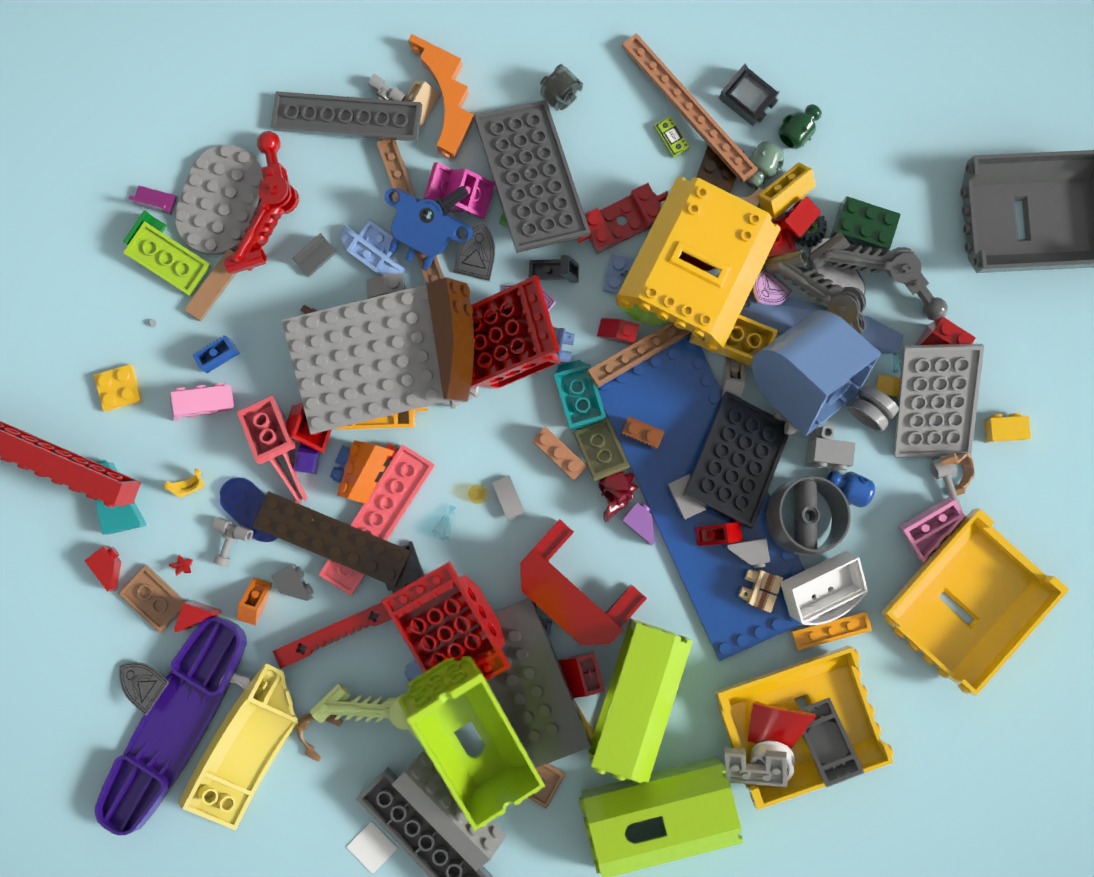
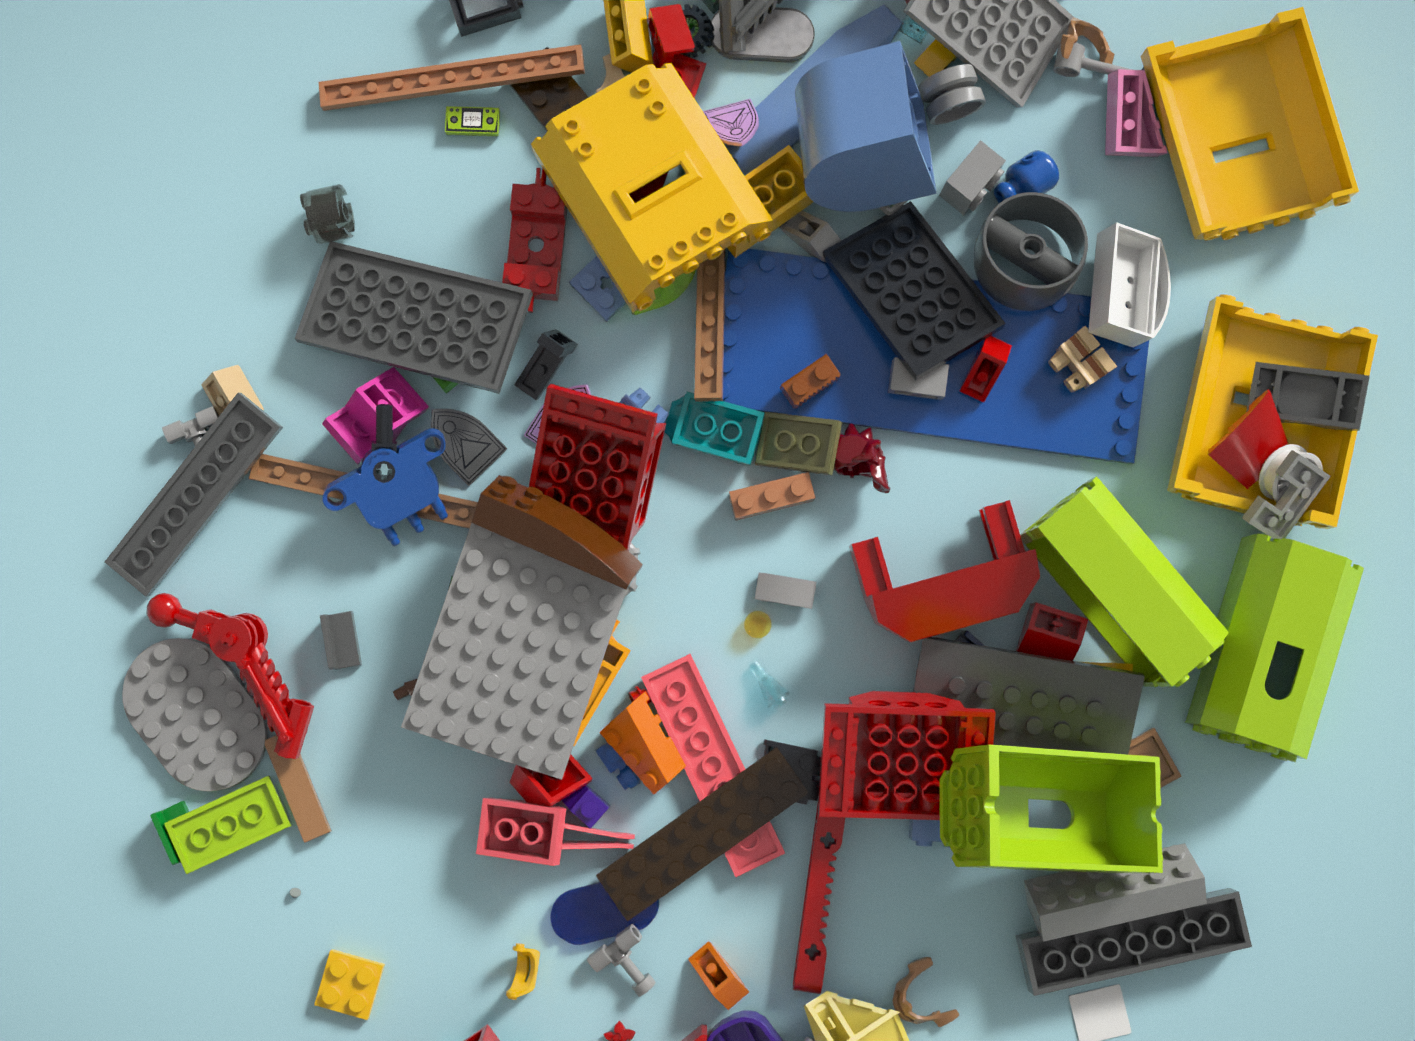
camera: 55 degrees left, 0 degrees up
(154, 200) = (142, 796): magenta panel -> none
(201, 401) = (432, 890): bright pink wedge -> none
(215, 354) = (386, 836): blue brick -> none
(291, 583) = (726, 916): dark grey slope -> none
(337, 704) = (906, 948): yellowish green piece -> none
(372, 247) = (377, 565): light blue plate -> none
(385, 284) = (434, 577): light grey slope -> none
(445, 69) = (211, 340): orange arch -> none
(618, 330) = (667, 333): red slope -> none
(640, 522) = (913, 451): medium lavender slope -> none
(751, 552) = (1031, 343): light grey slope -> none
(768, 160) = (577, 25): sand green piece -> none
(824, 432) = (942, 171): light grey bar -> none
(831, 631) = (1183, 298): light orange plate -> none
(842, 301) = (803, 48): dark grey piece -> none

